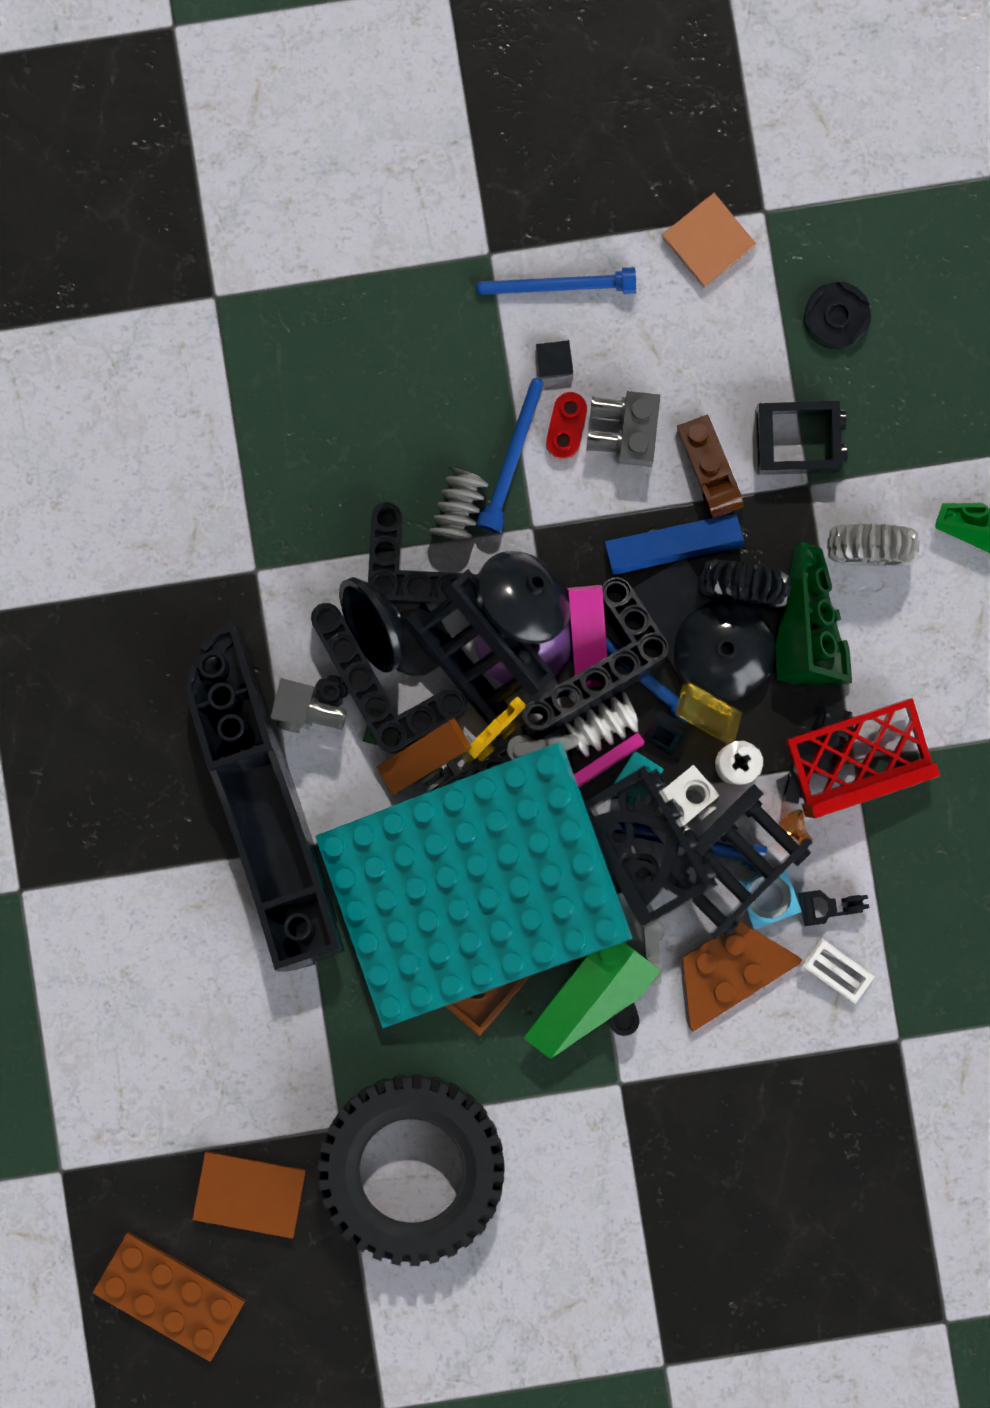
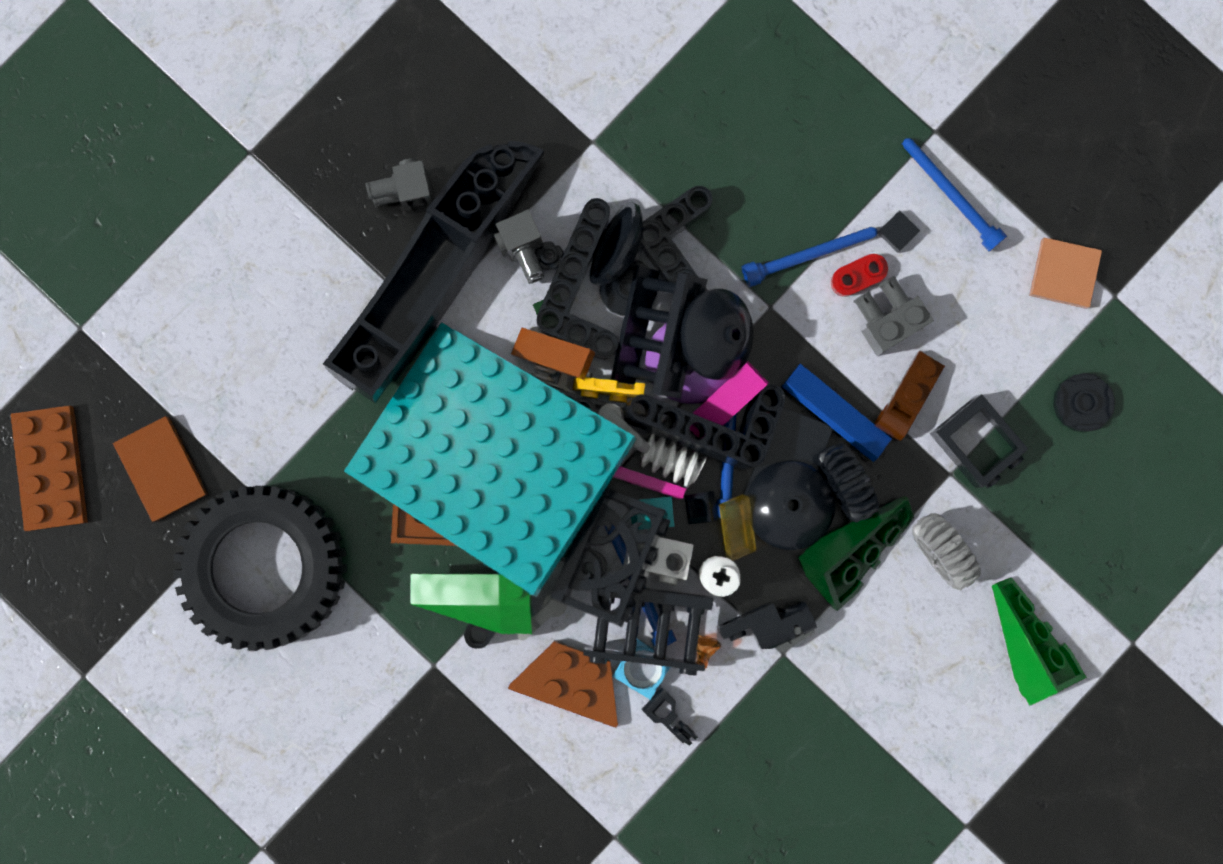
camera: 45 degrees right, 0 degrees up
(170, 768) = (408, 184): none -> dark grey brick
(459, 505) = (746, 243): light grey piece -> none
(814, 954) = (628, 732): white tile -> none
(869, 787) = (781, 684): red fence -> none

